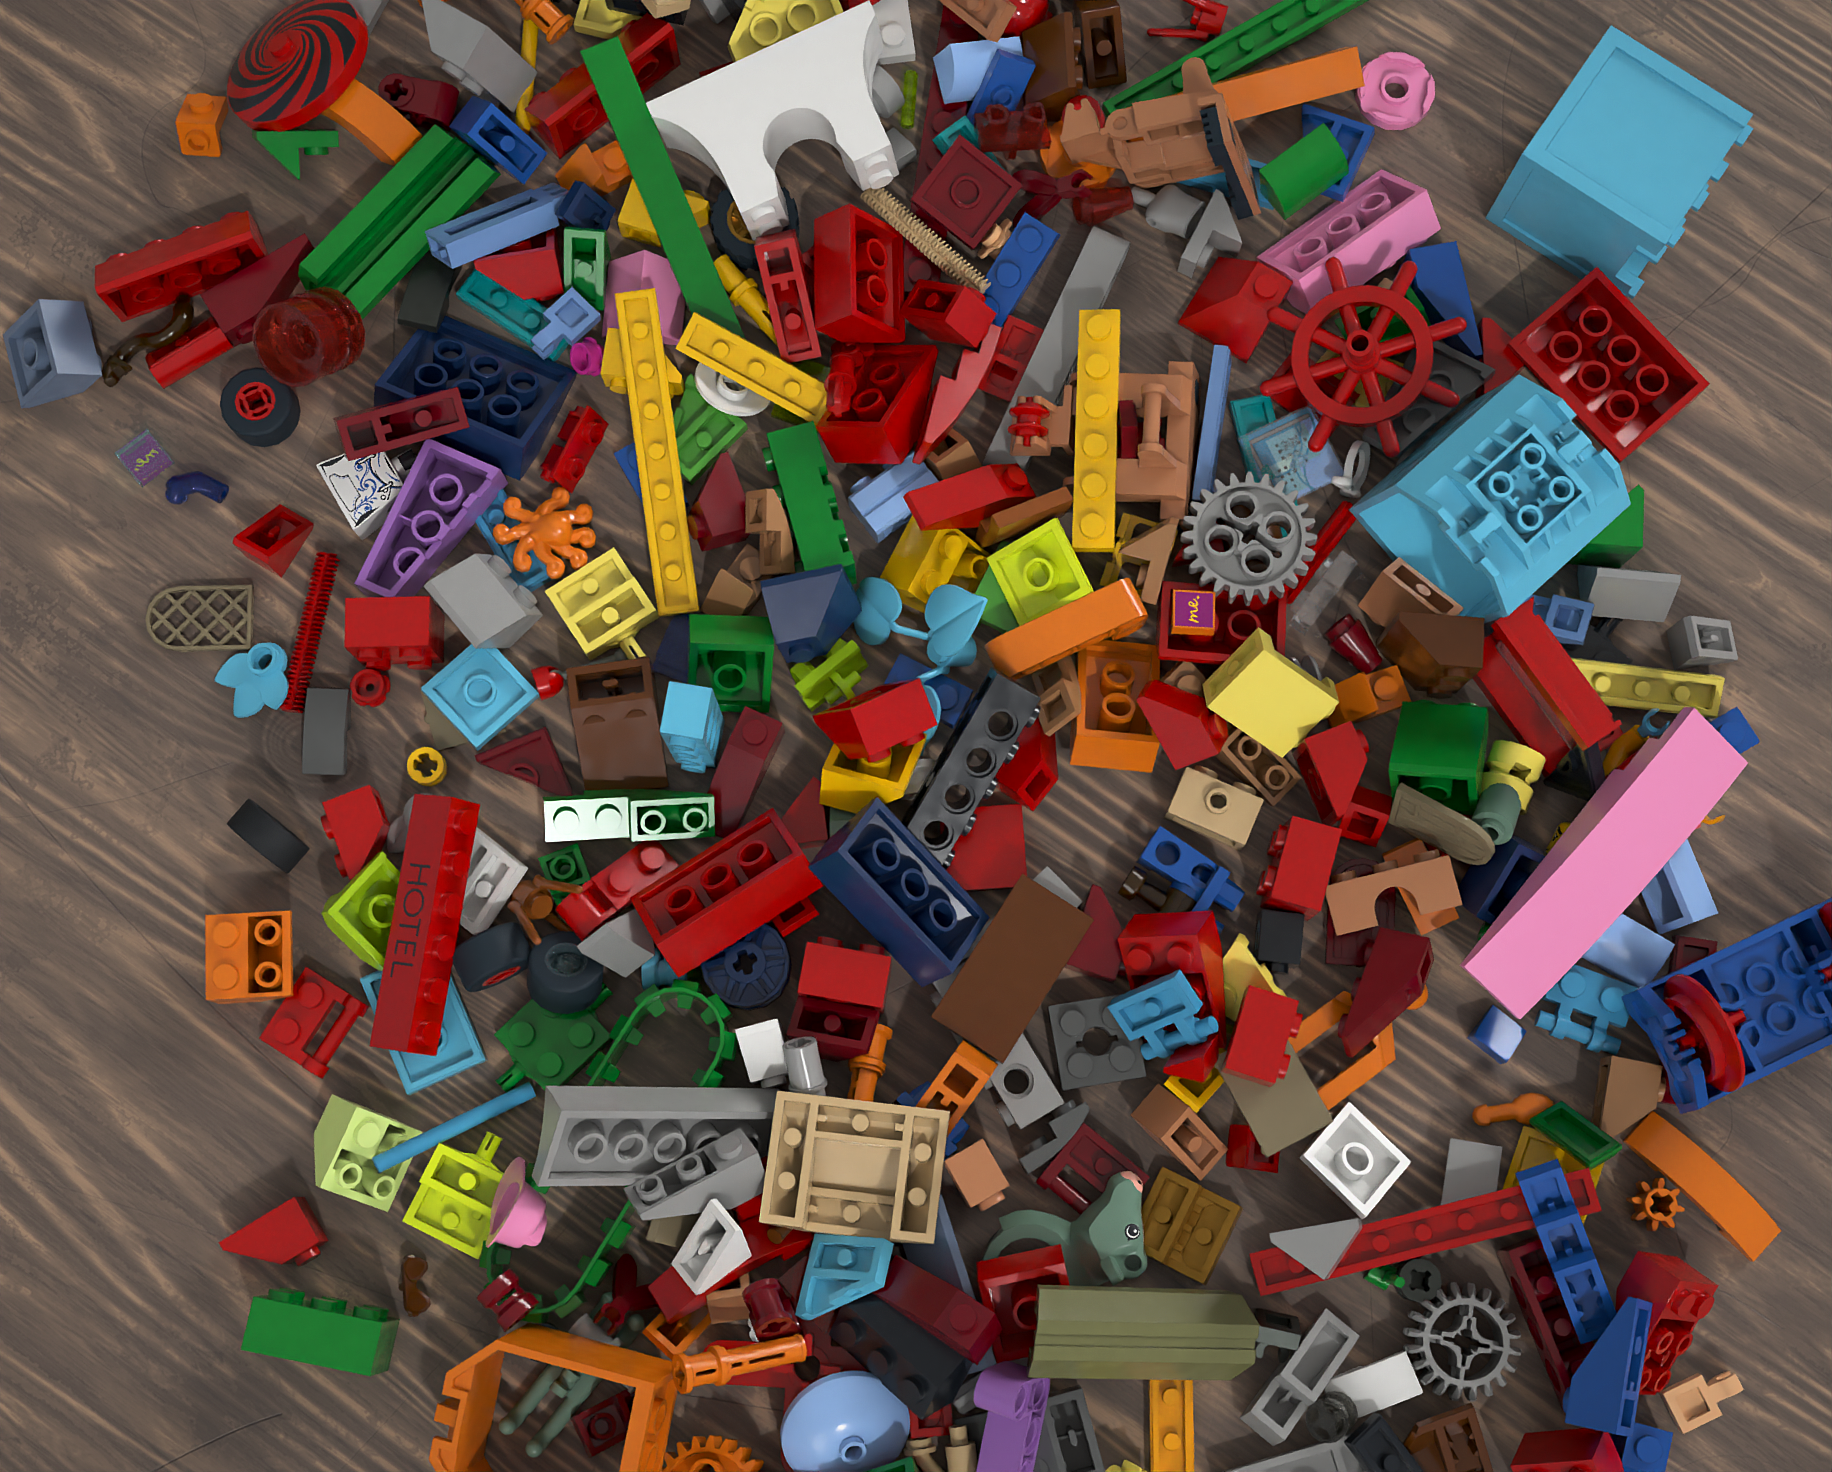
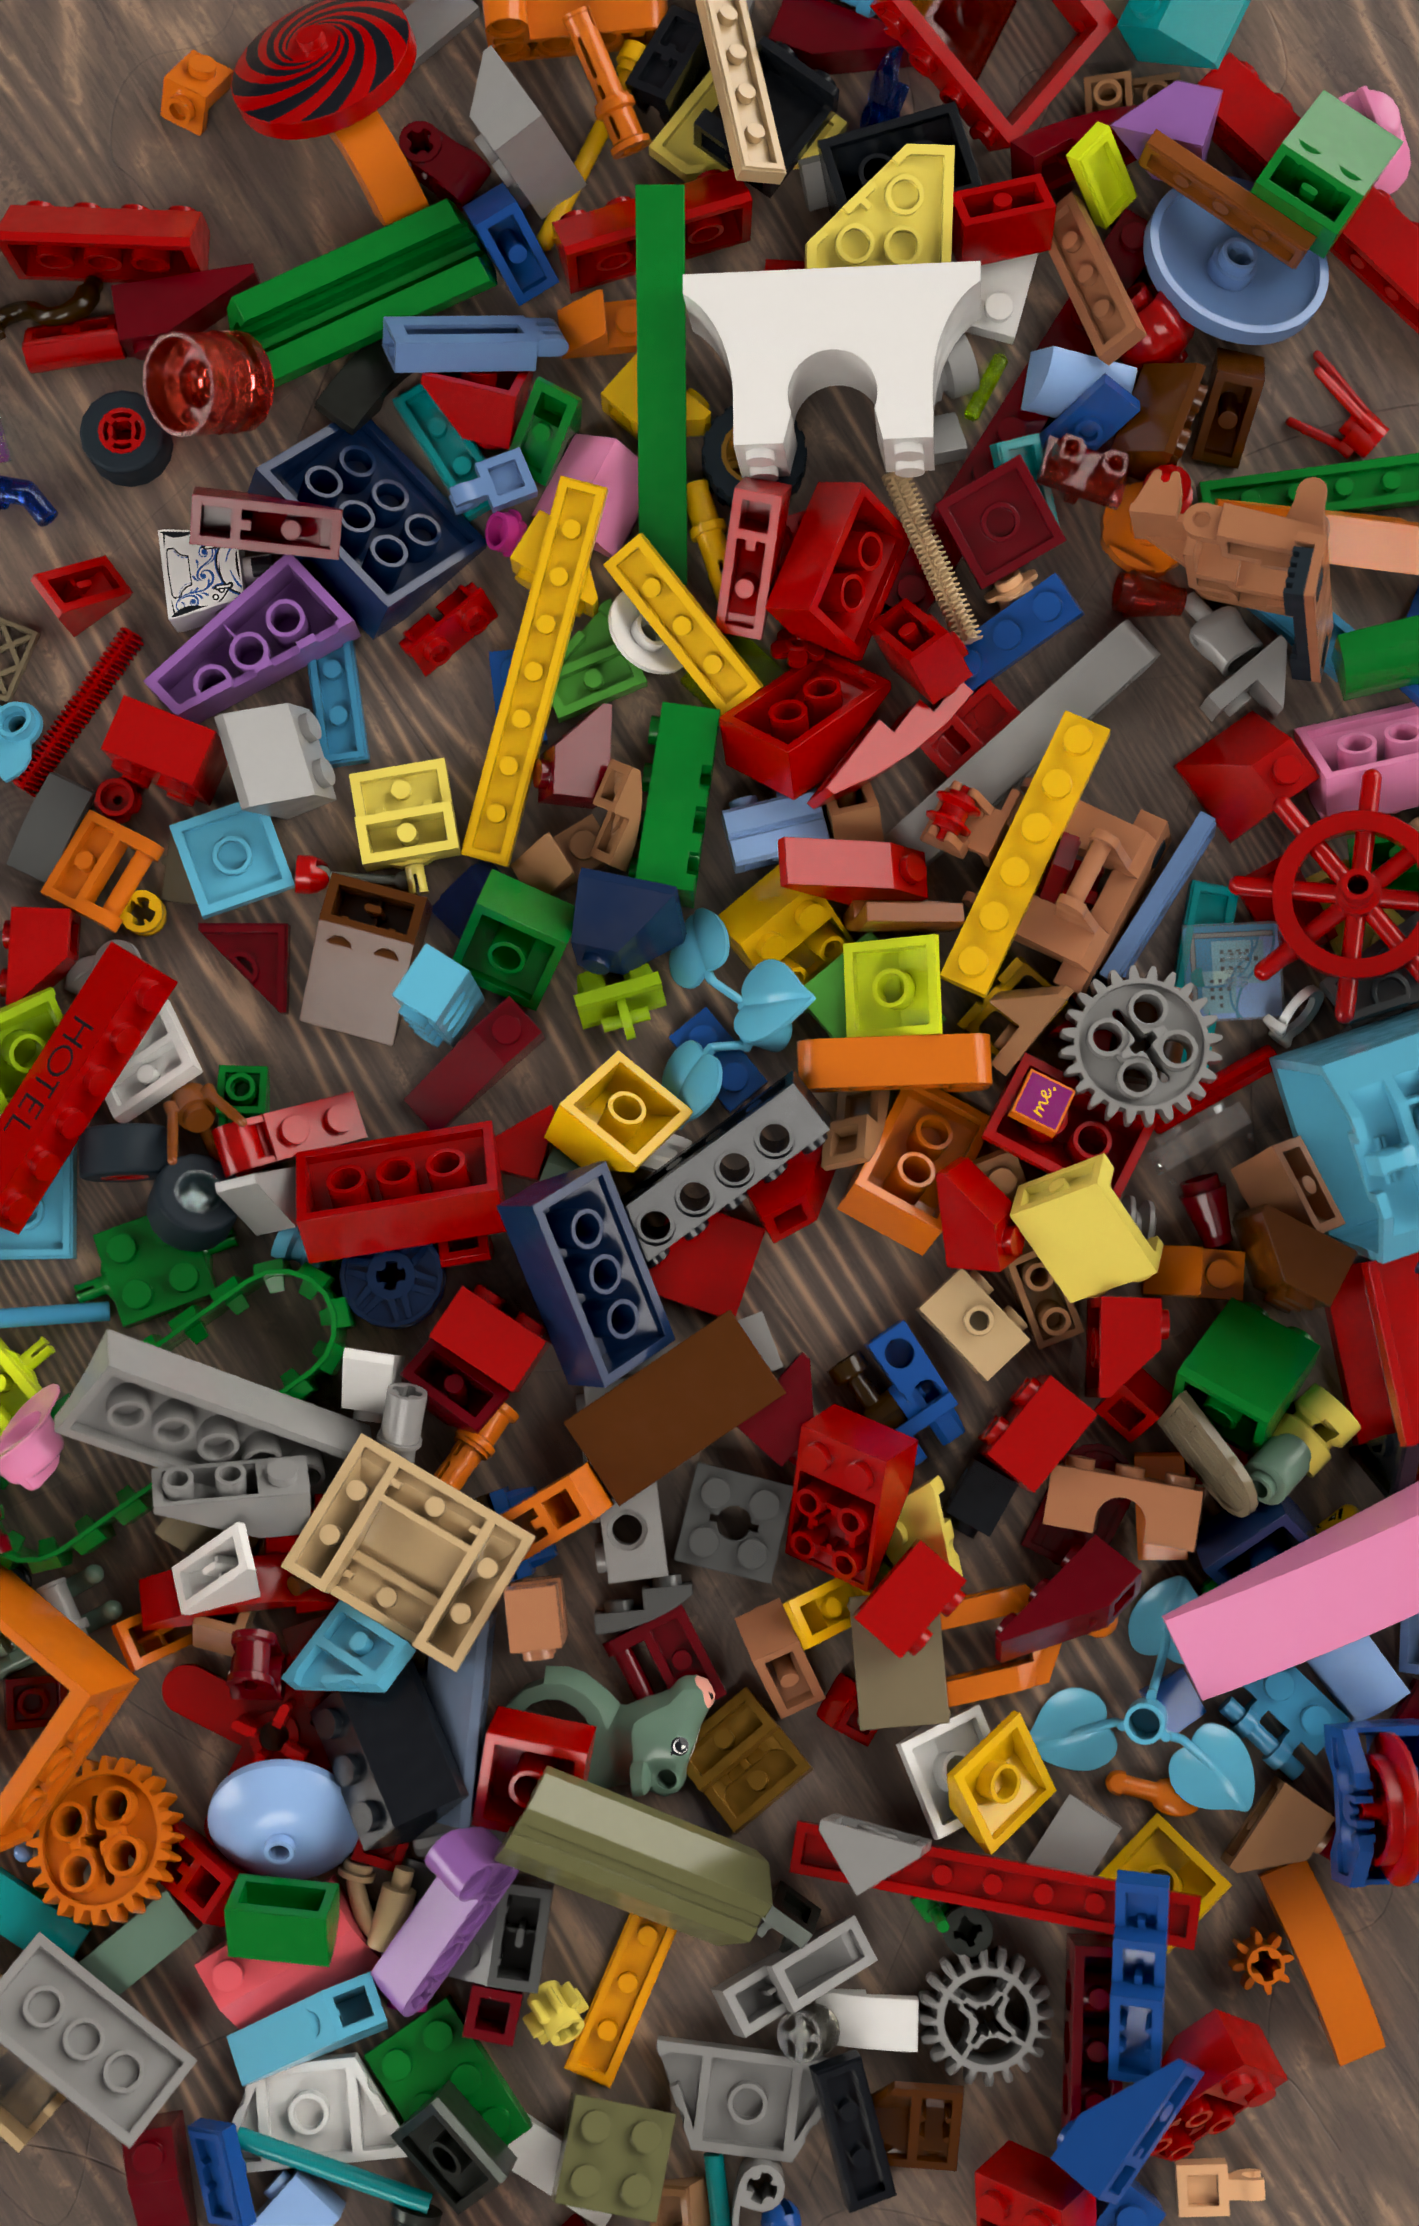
camera: 20 degrees right, 5 degrees up
(285, 145) = (272, 155): green slope -> none
(369, 746) = (90, 863): none -> orange plate
(547, 533) = (379, 710): orange animal -> none
(585, 208) = (571, 365): dark blue bracket -> none
(625, 1294) = (113, 1575): dark red piece -> none
(629, 813) = (337, 1058): slope -> none
(720, 1364) = (175, 1700): orange pin -> none
(840, 383) = (766, 681): red axle -> none
(878, 720) = (645, 1075): red slope -> none
(940, 1309) = (432, 1743): dark red slope -> none
(1049, 191) = (1094, 557): dark red piece -> none
(1159, 1004) = (813, 1517): dark azure plate -> none
(1194, 1061) = (827, 1590): red slope -> none
(1393, 1154) = (999, 1784): none -> yellow slope
(1433, 1090) = (1076, 1735): none -> medium azure plant
(1575, 1135) = (1207, 1851): green tile -> none

